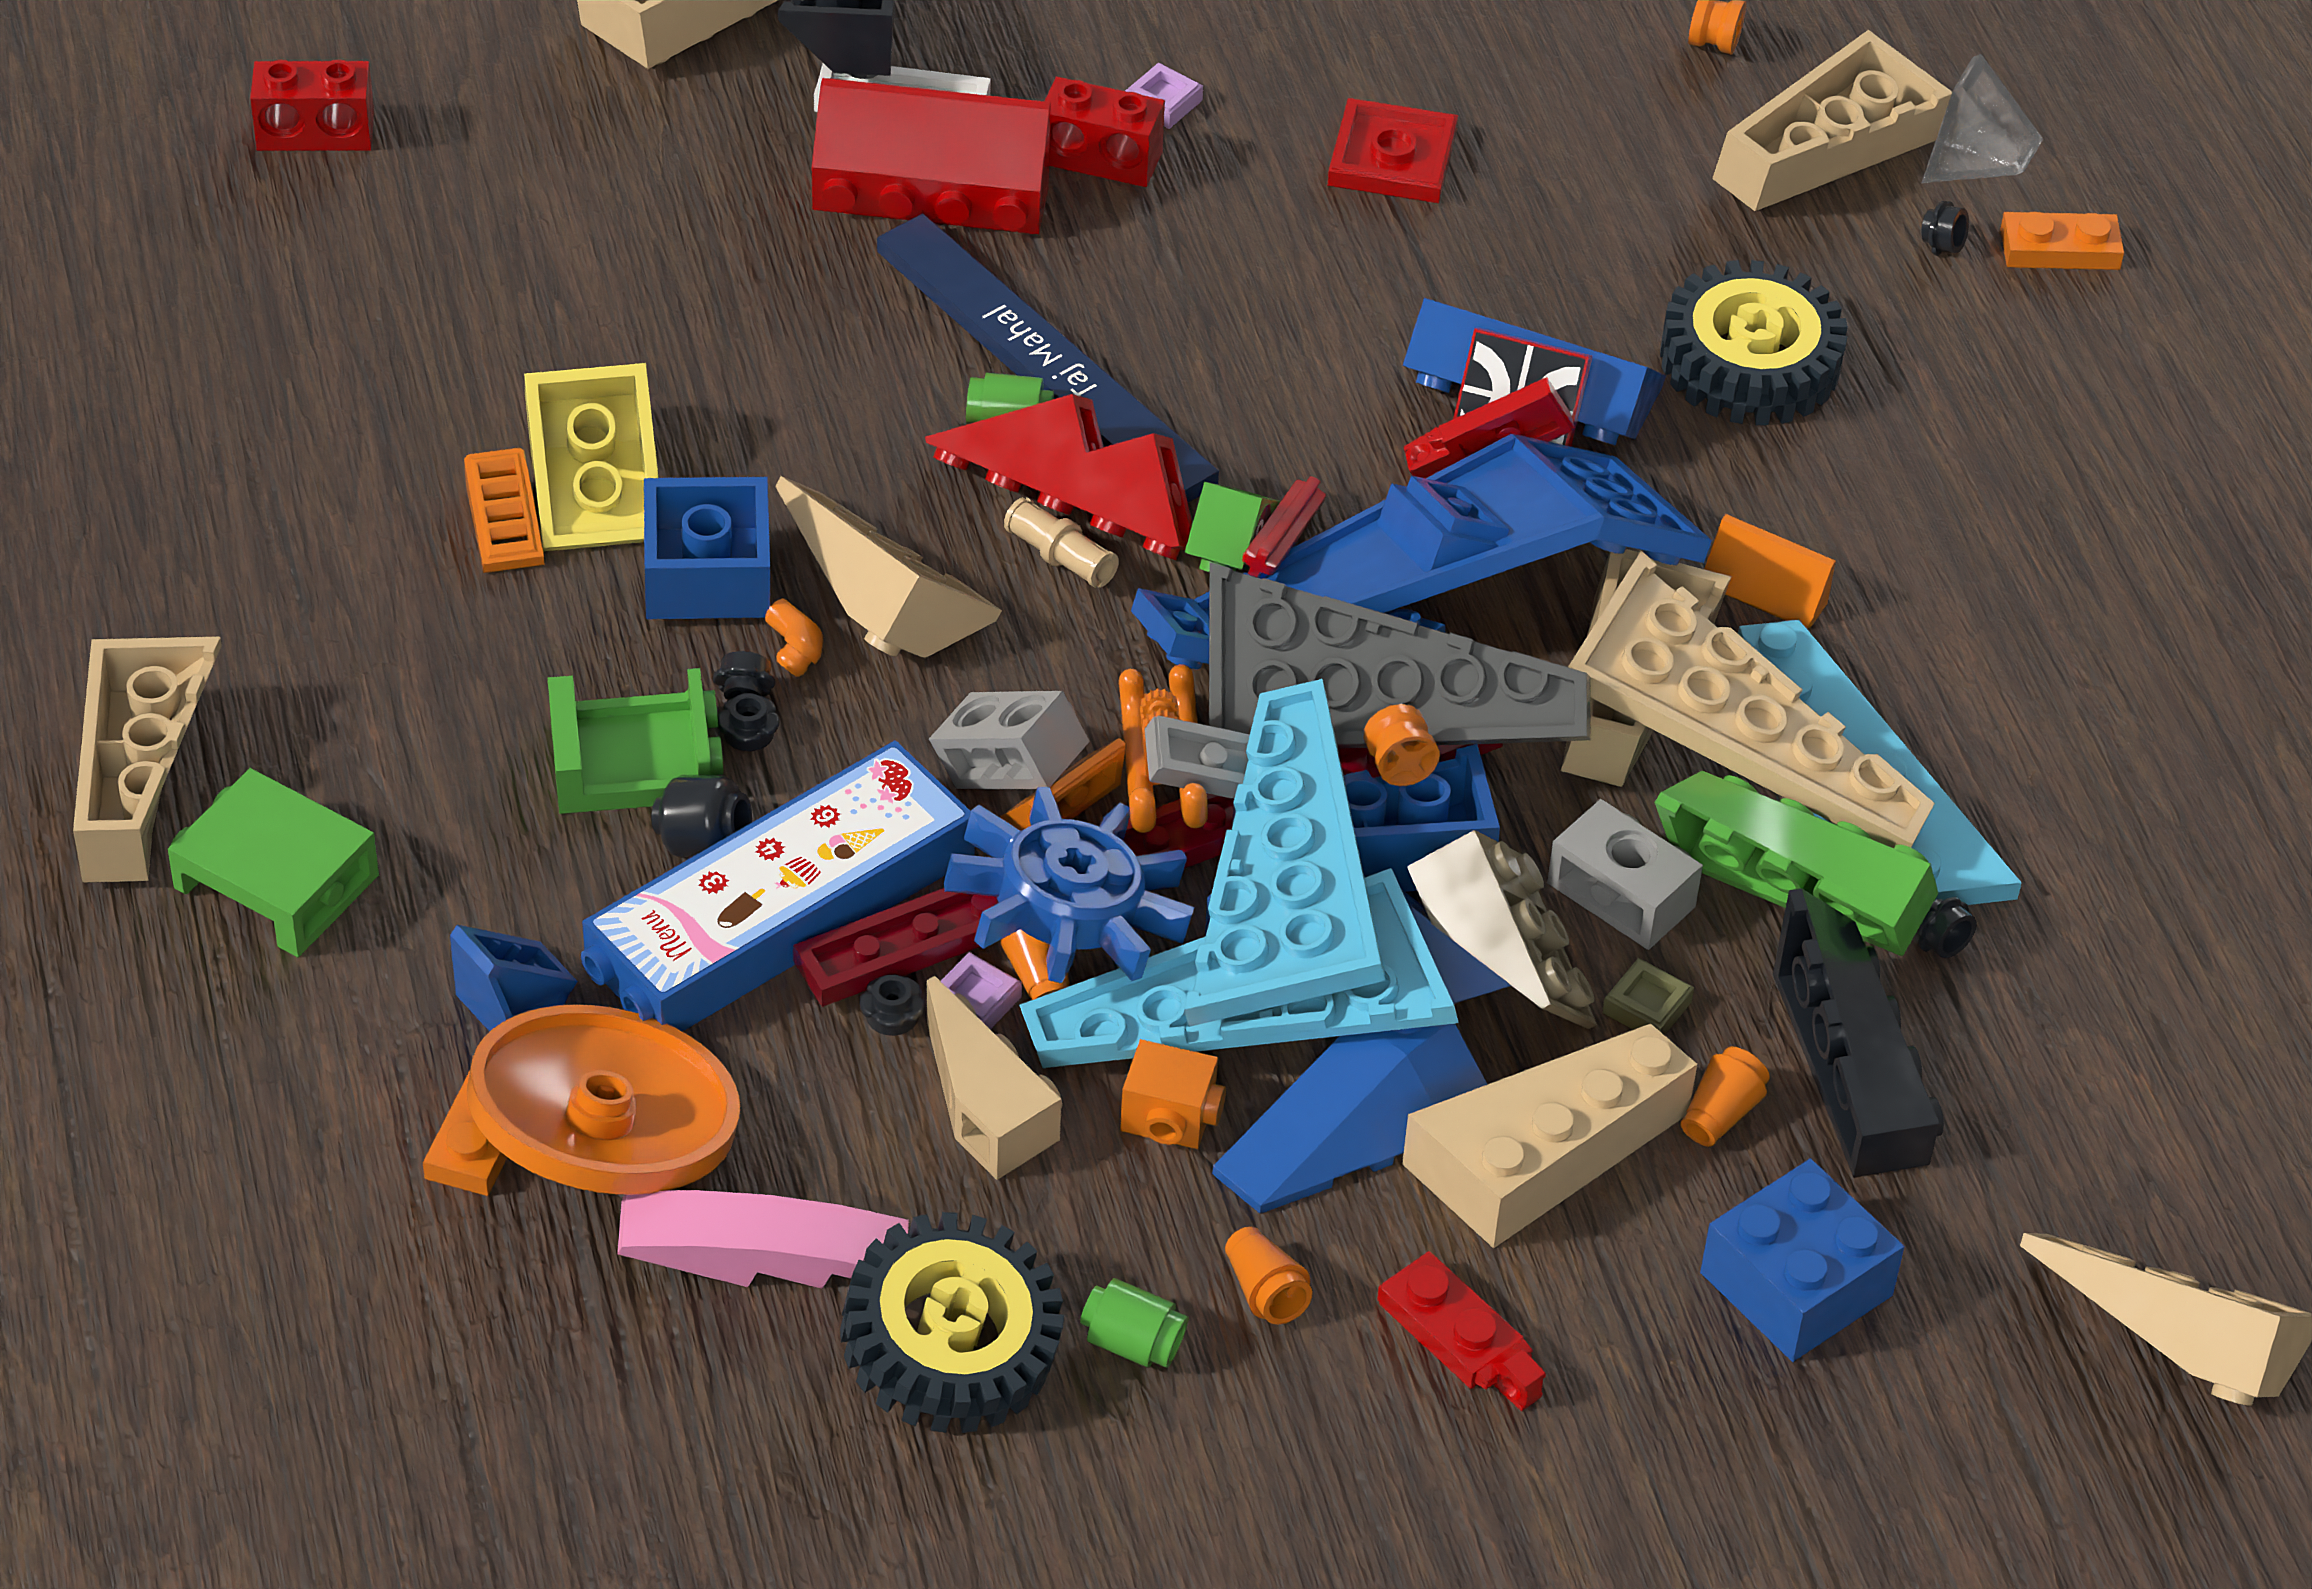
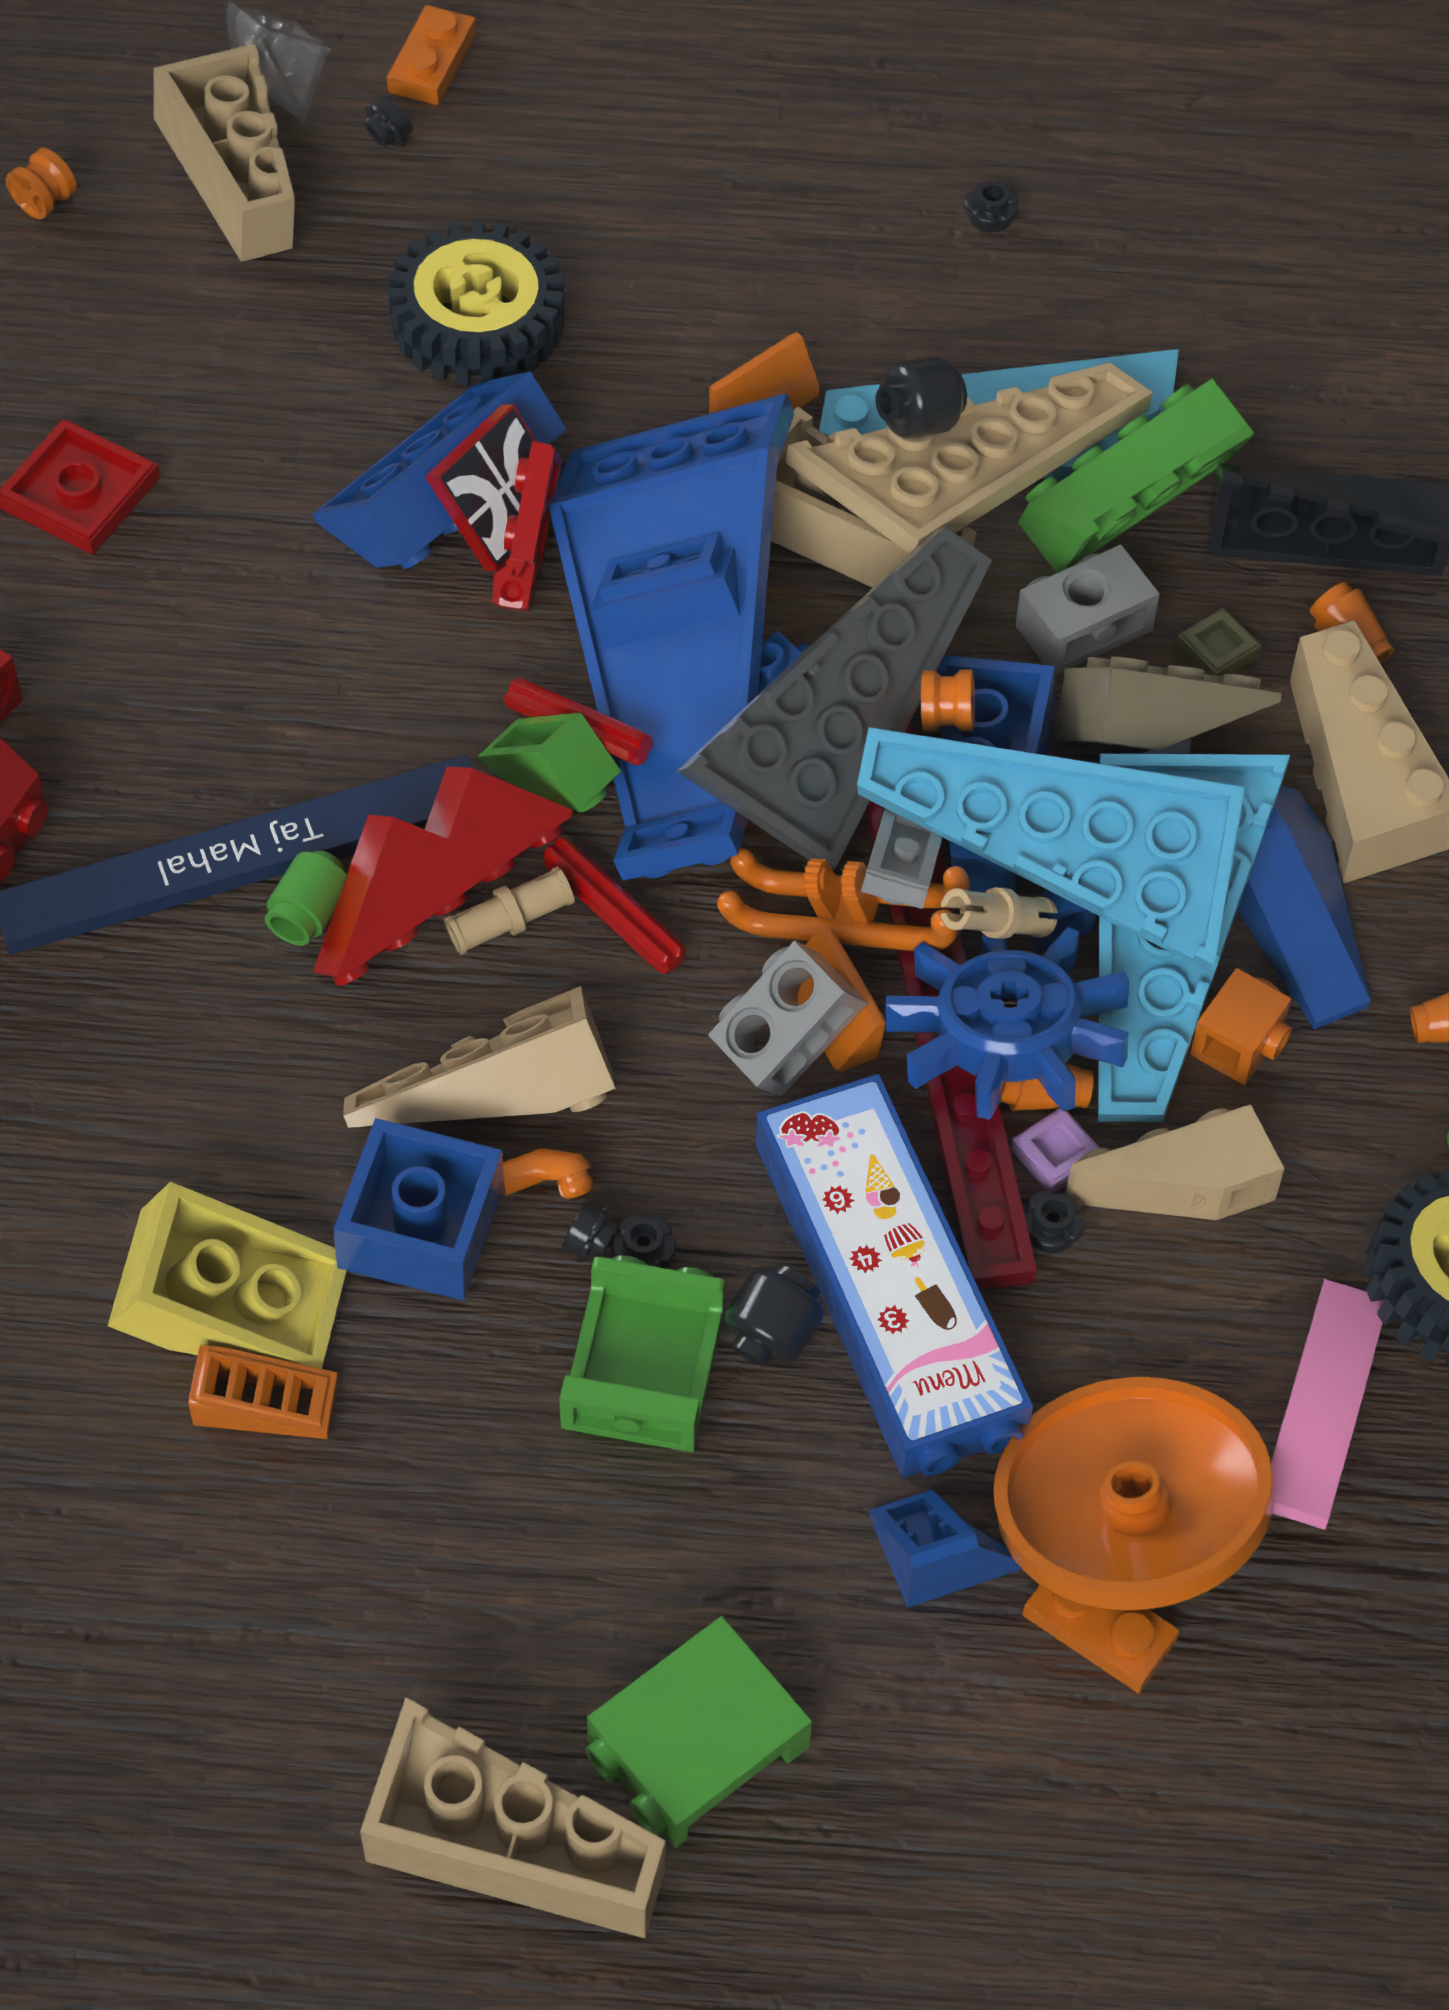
camera: 70 degrees left, 10 degrees up
(1103, 616) = (616, 906): none -> red axle
(1172, 839) = (998, 913): none -> tan pin
(1746, 624) = (921, 397): none -> black head
(2131, 697) = (991, 206): none -> black plate

